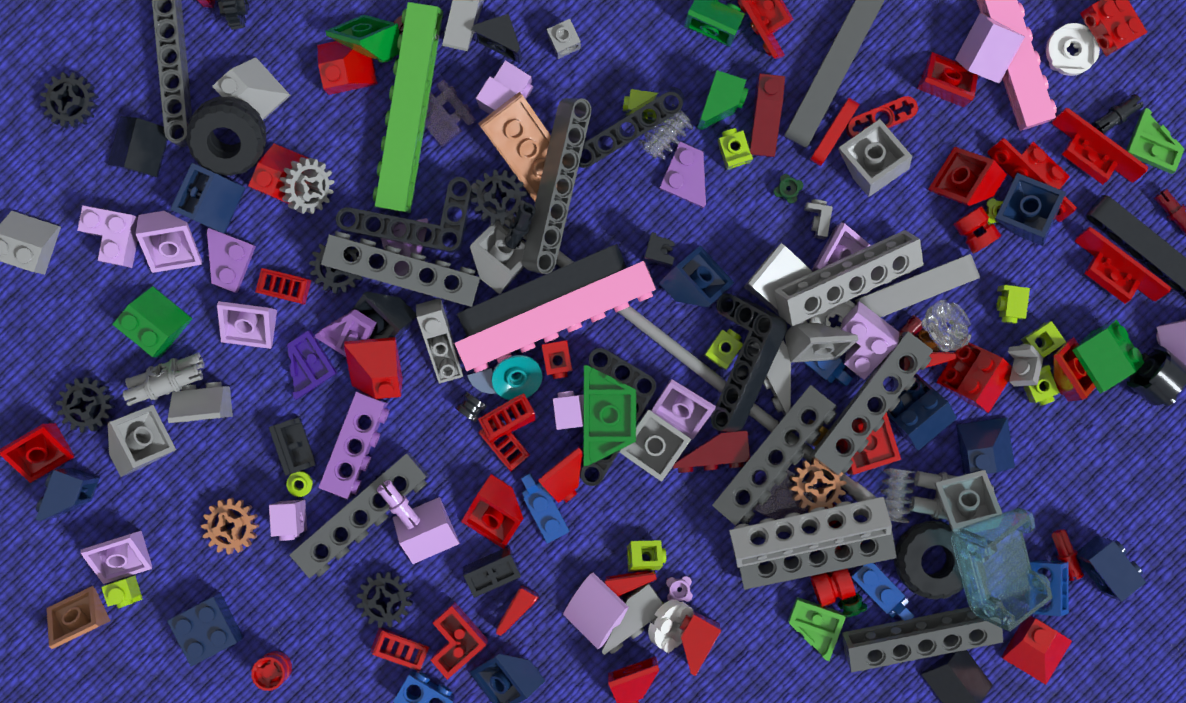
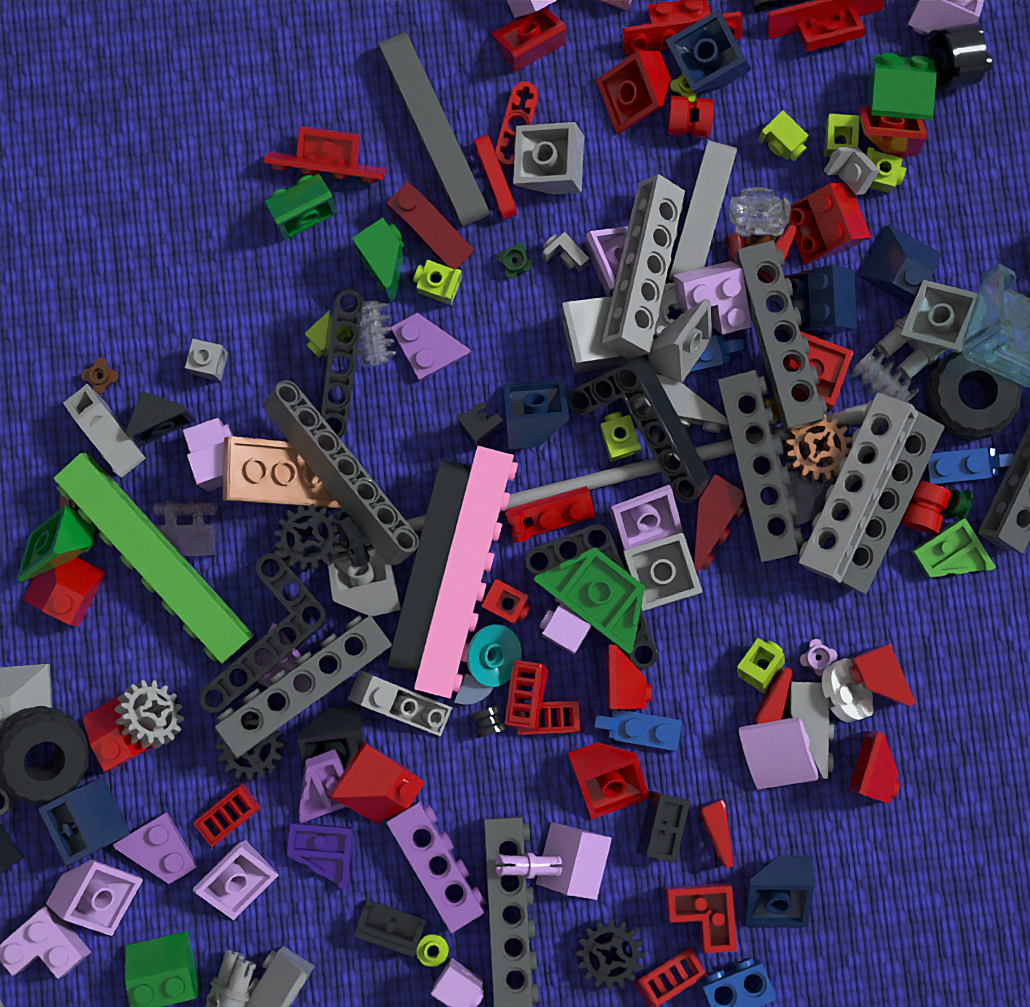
camera: 55 degrees left, 5 degrees down
(637, 342) = (550, 513): none -> red plate

